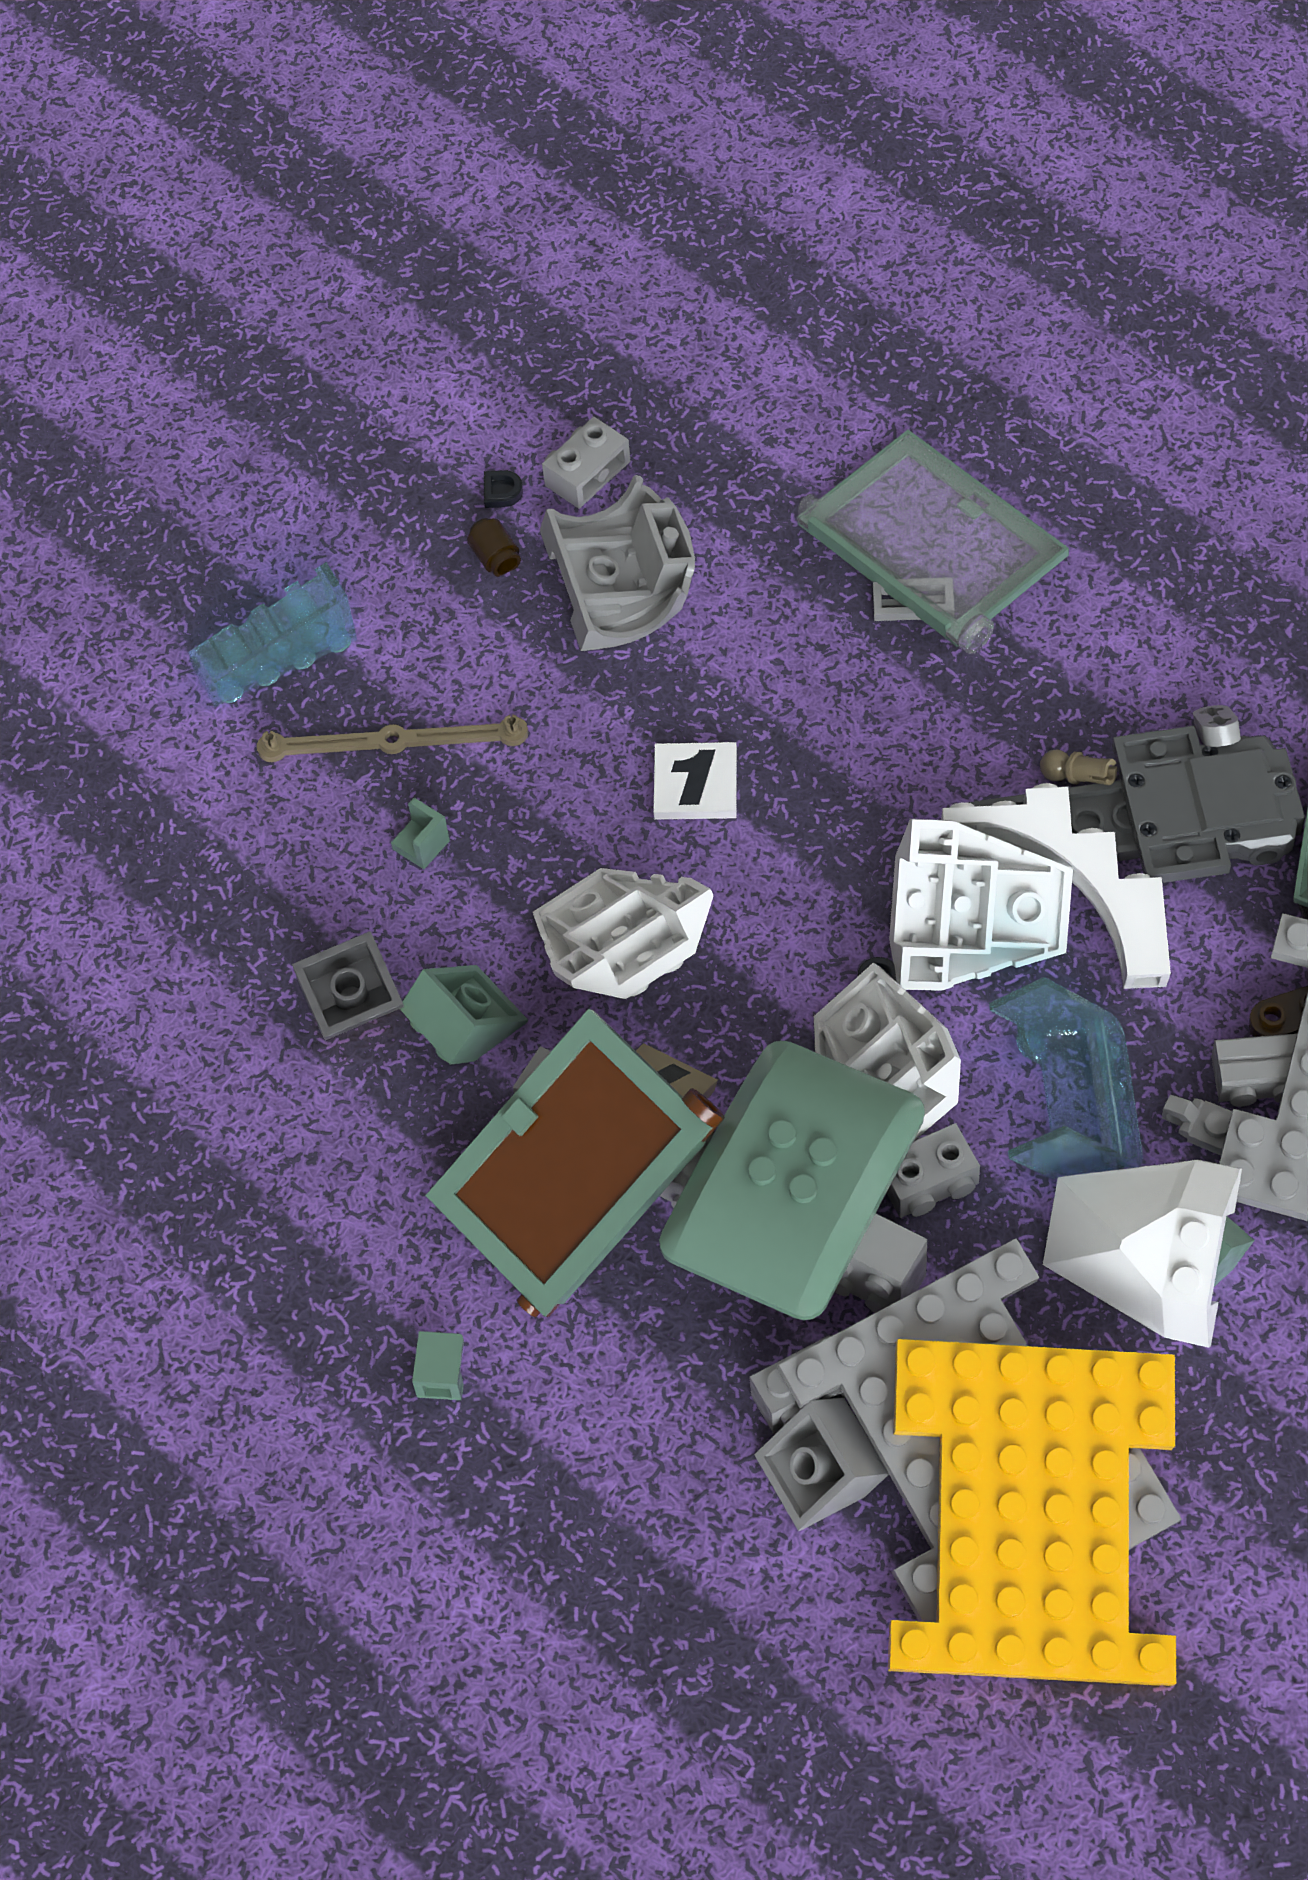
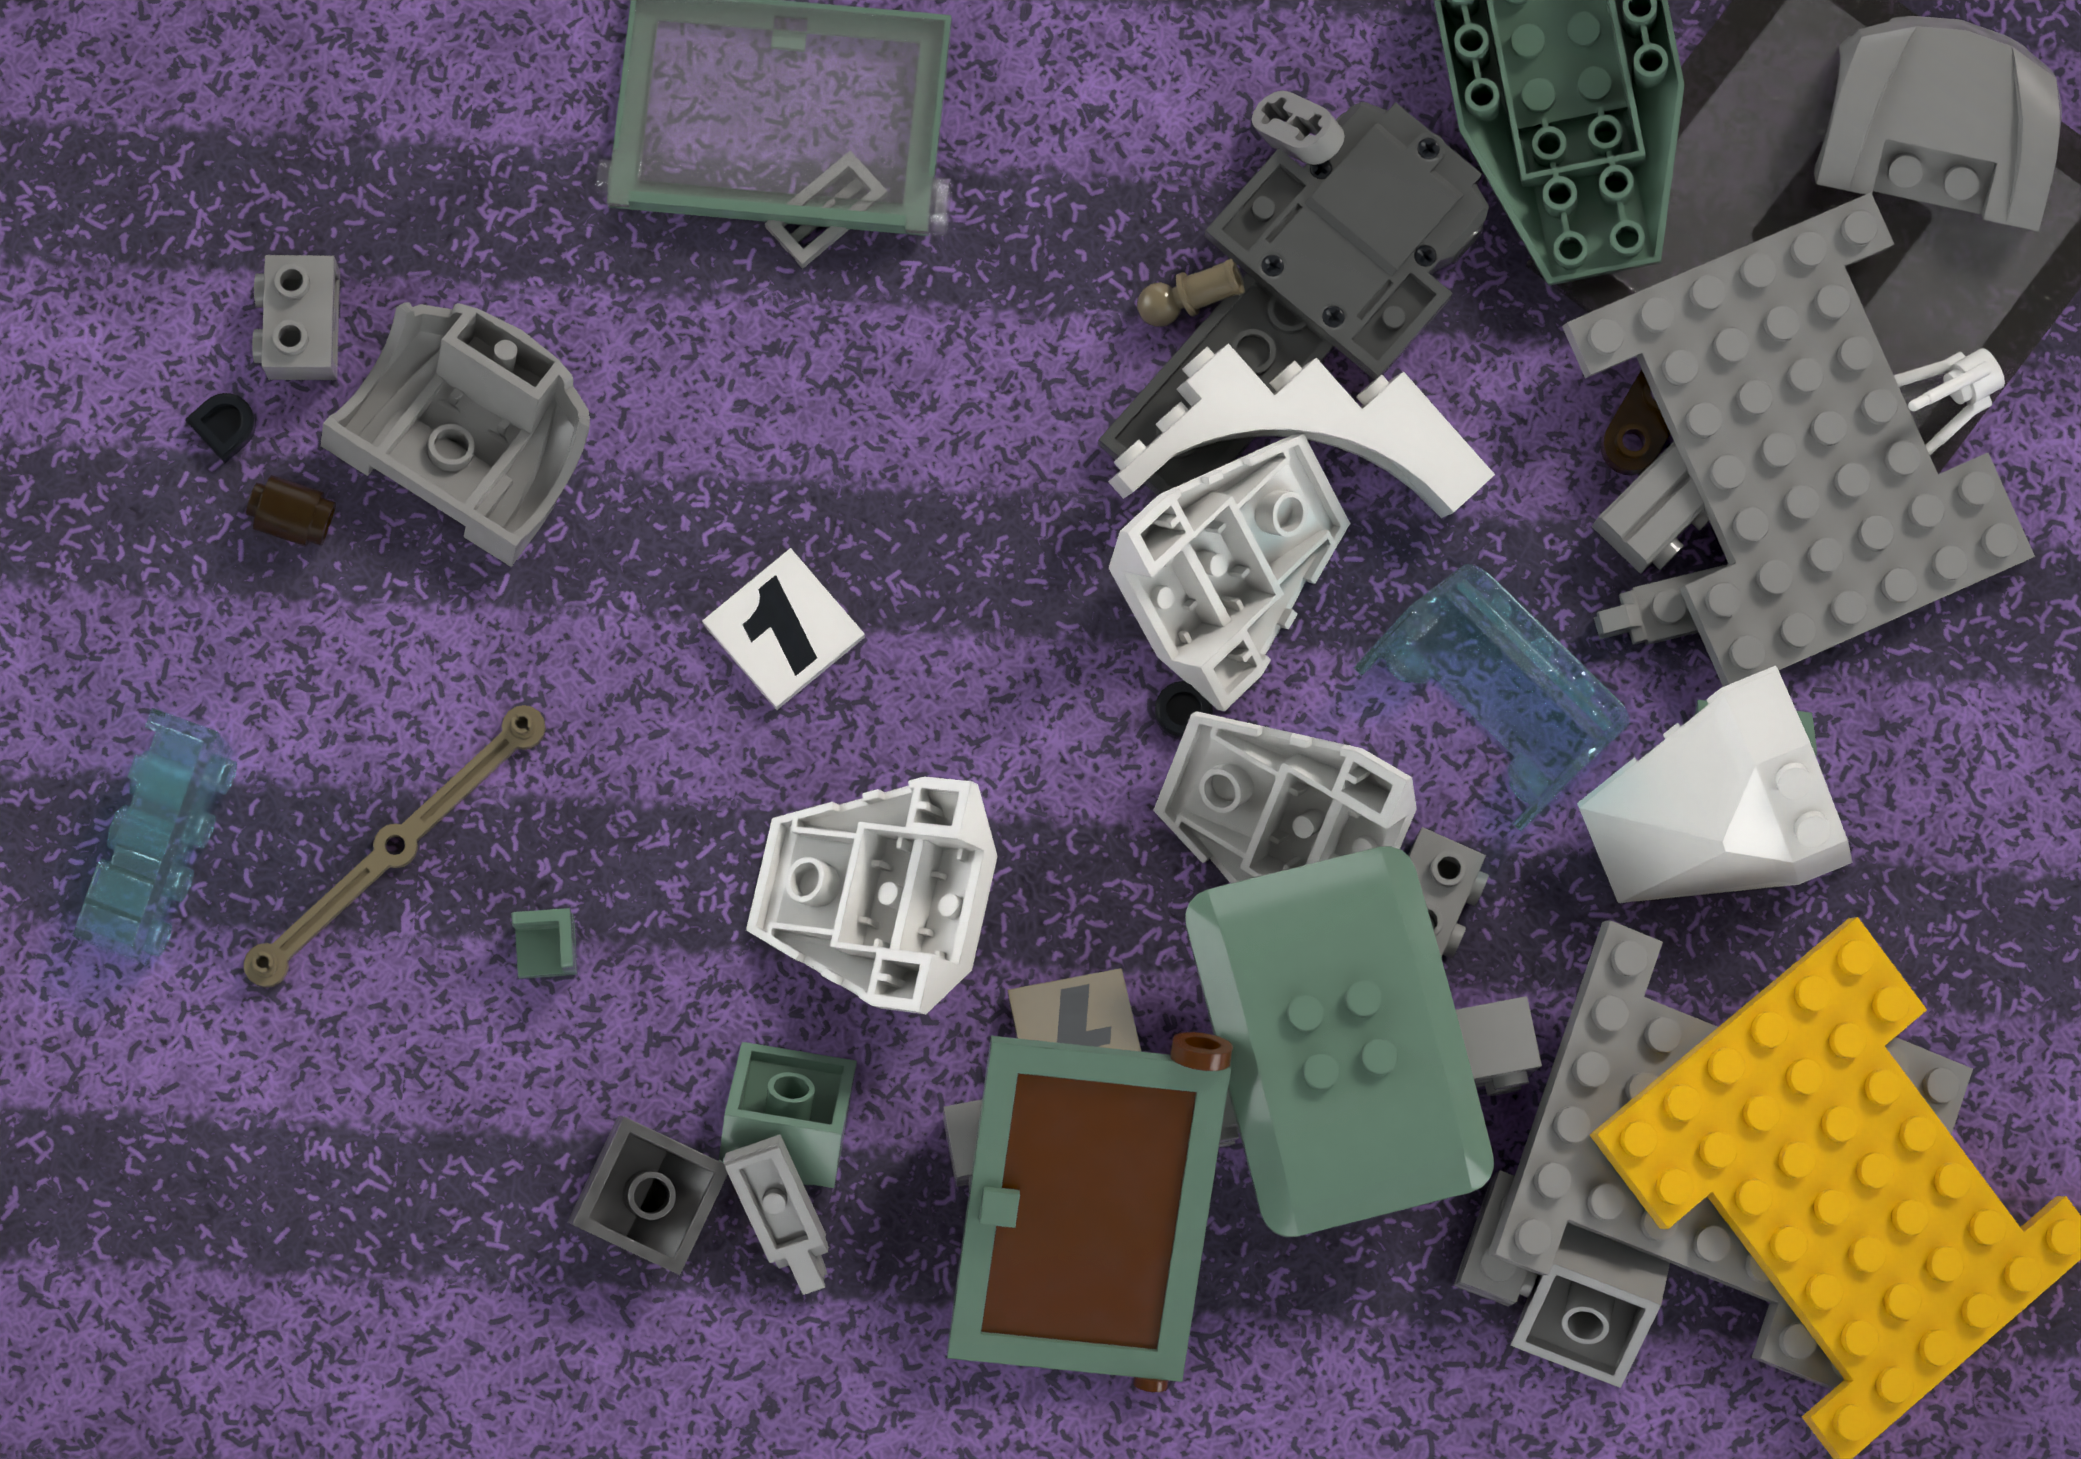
camera: 55 degrees left, 20 degrees up
(408, 1050) = (780, 1210): none -> light grey hinge

